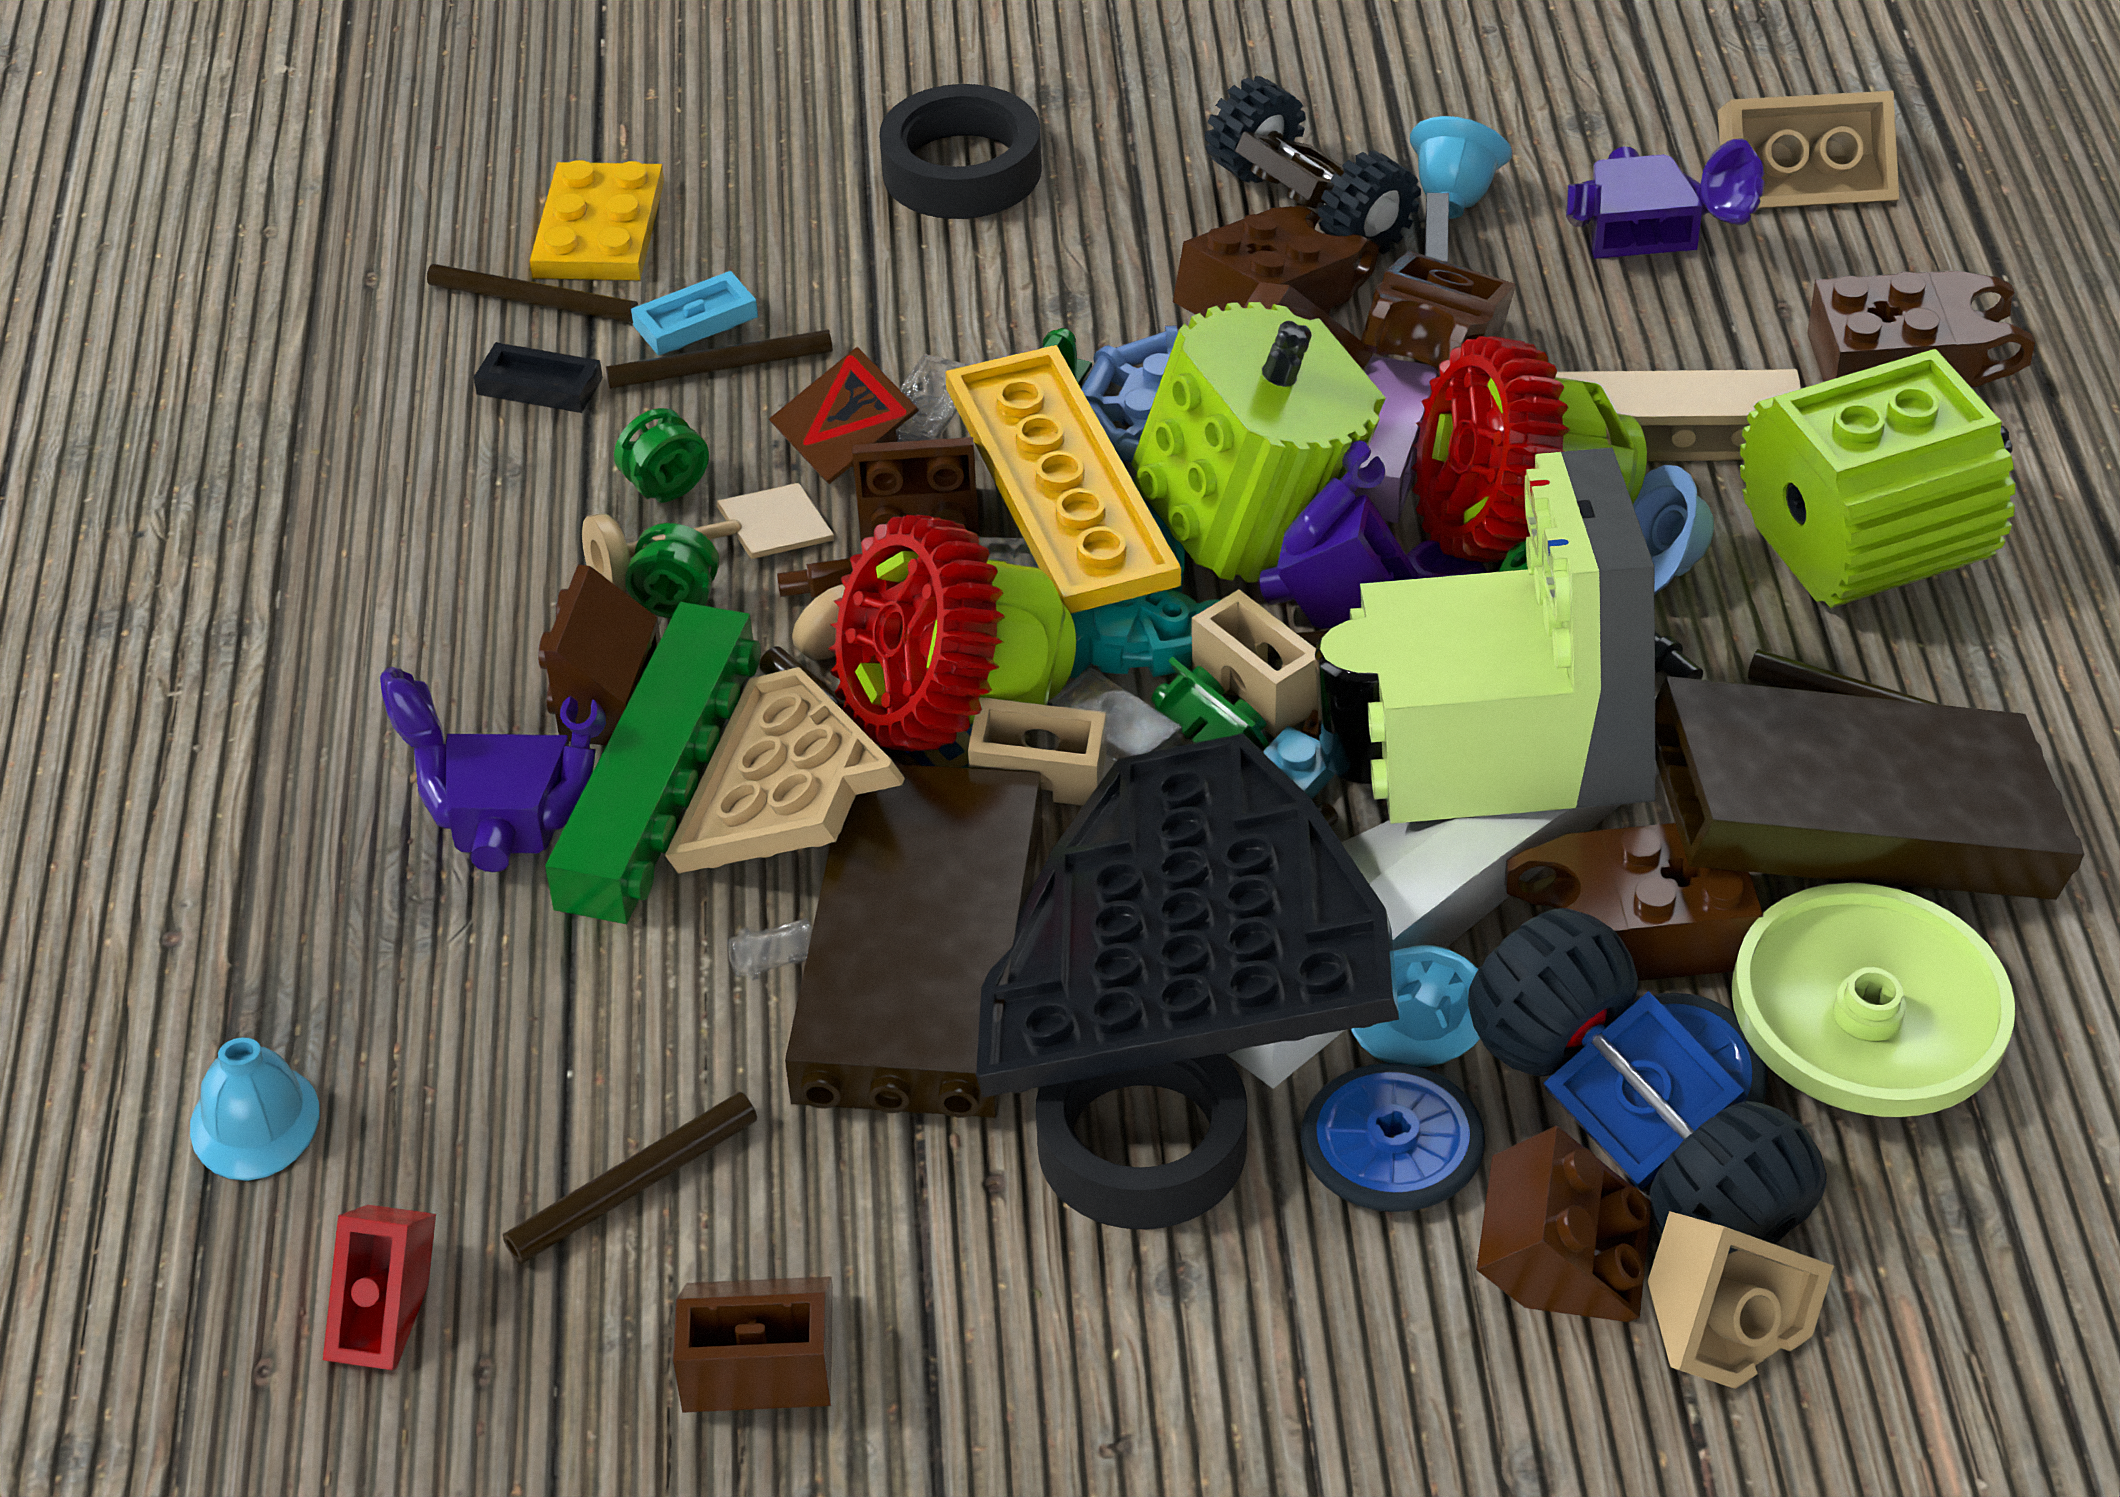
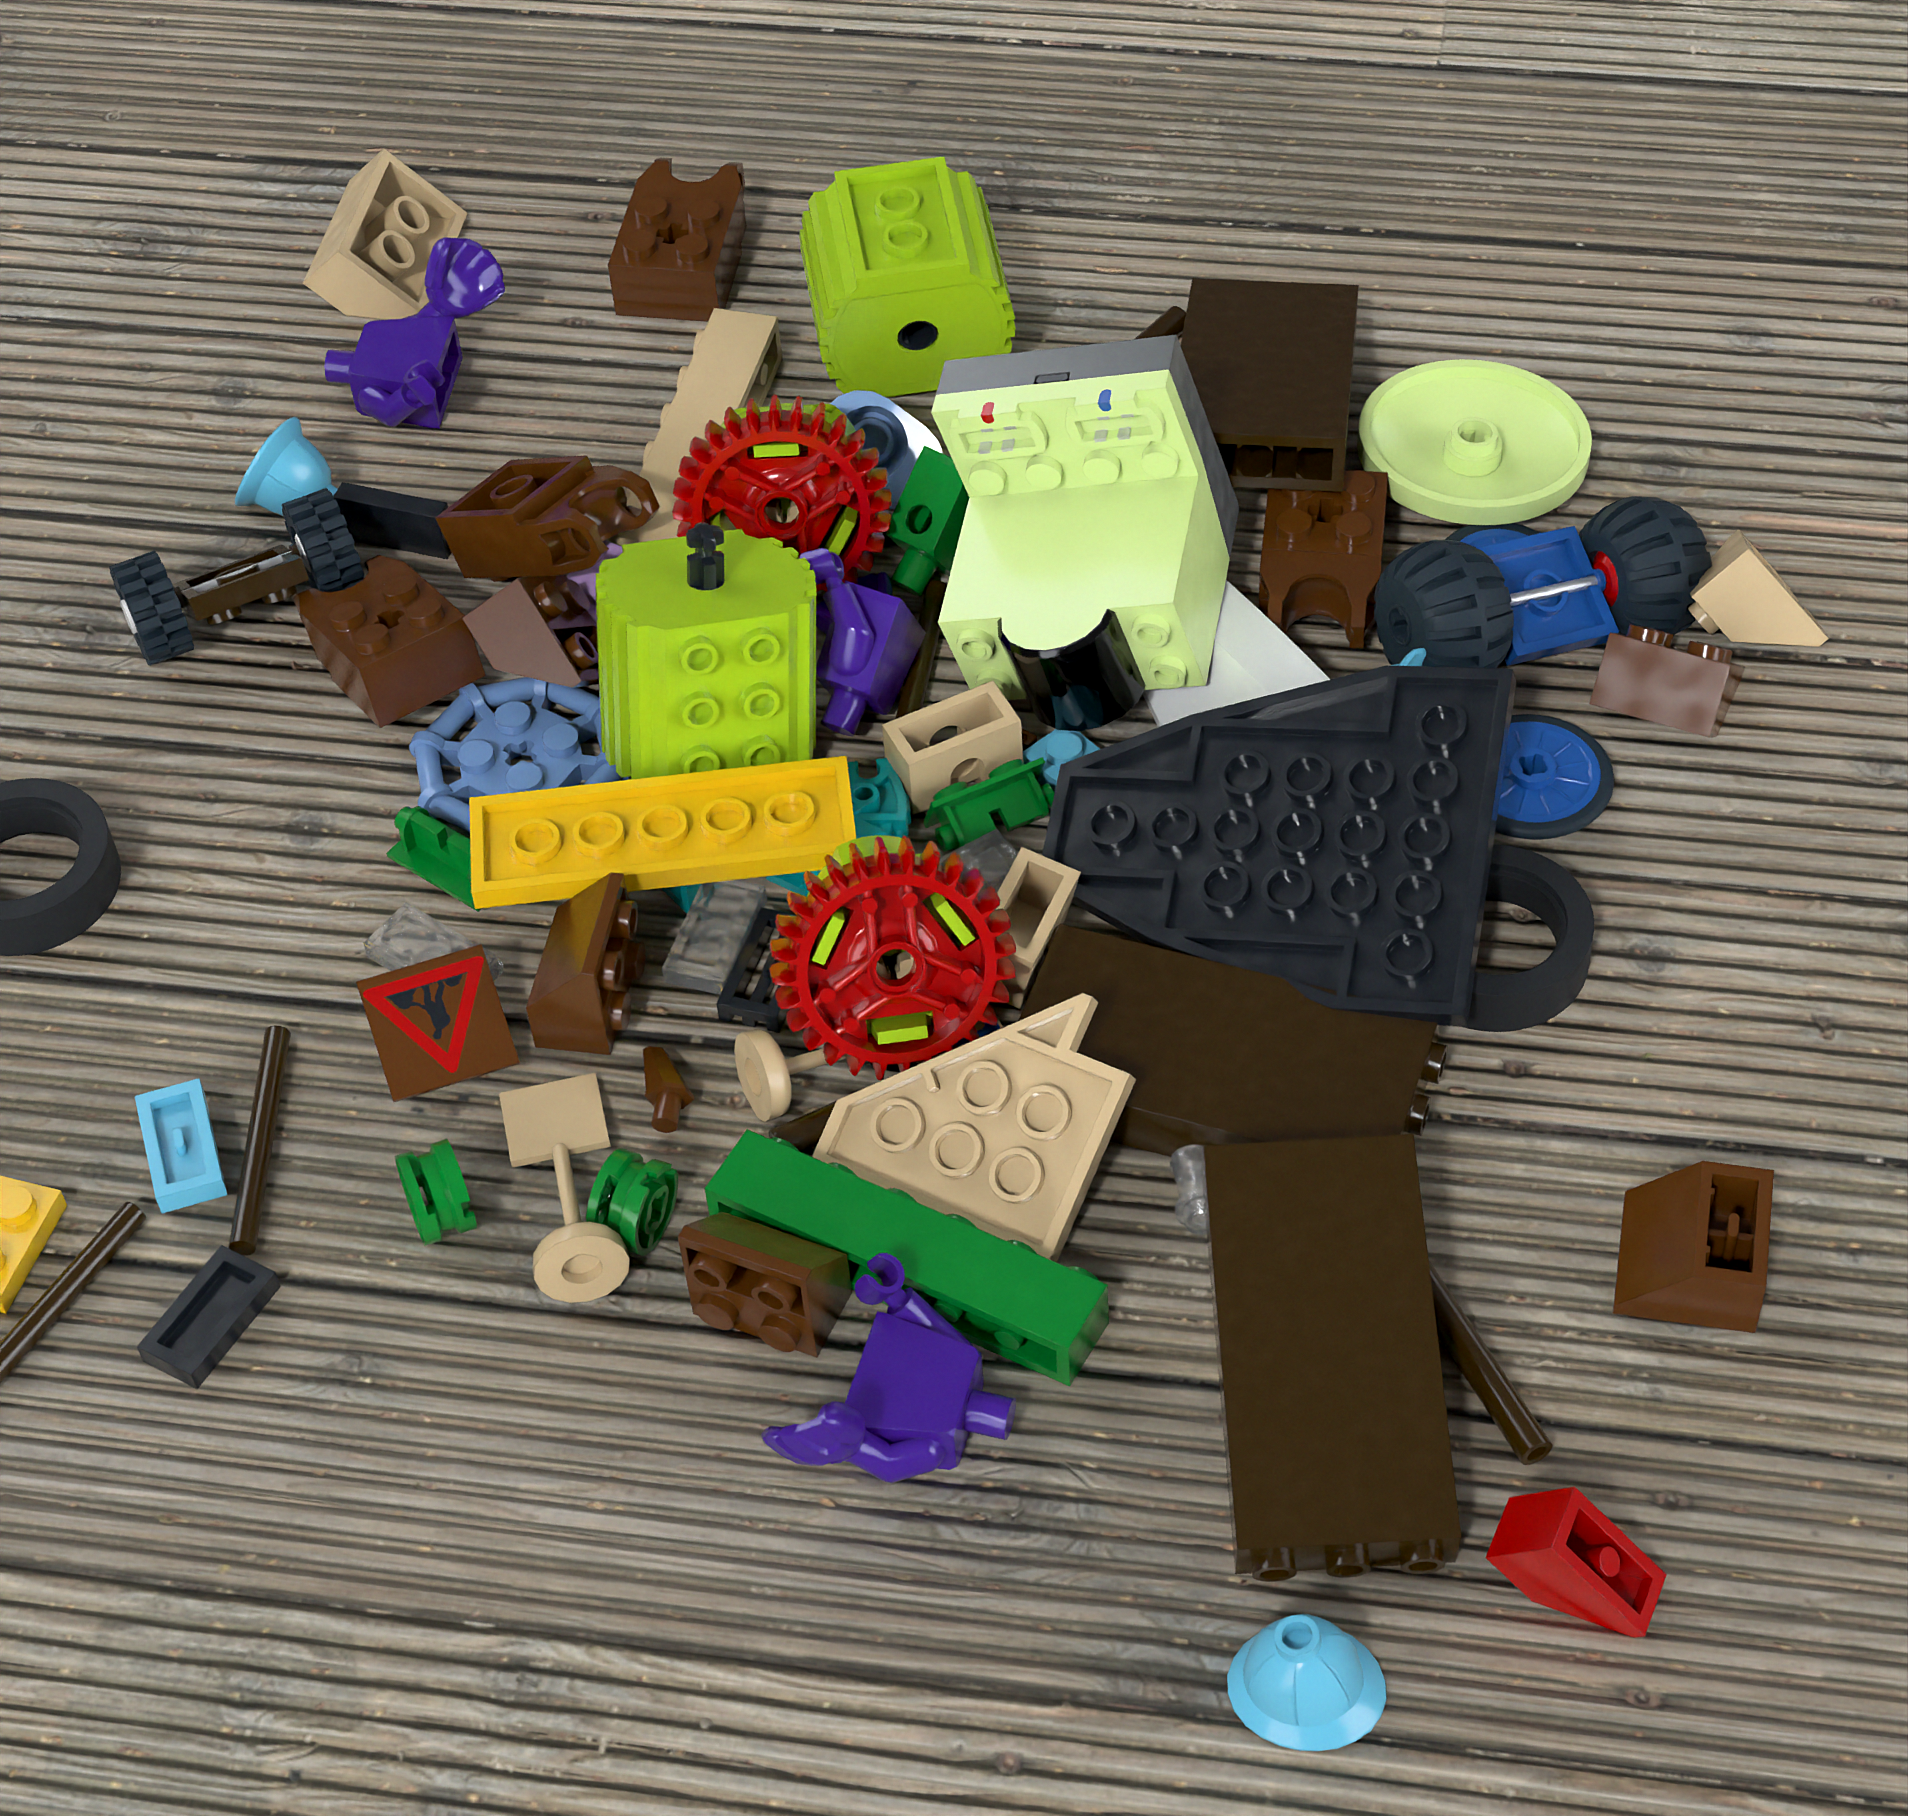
camera: 75 degrees left, 5 degrees up
(564, 1047) = (1328, 1358): none -> dark brown brick

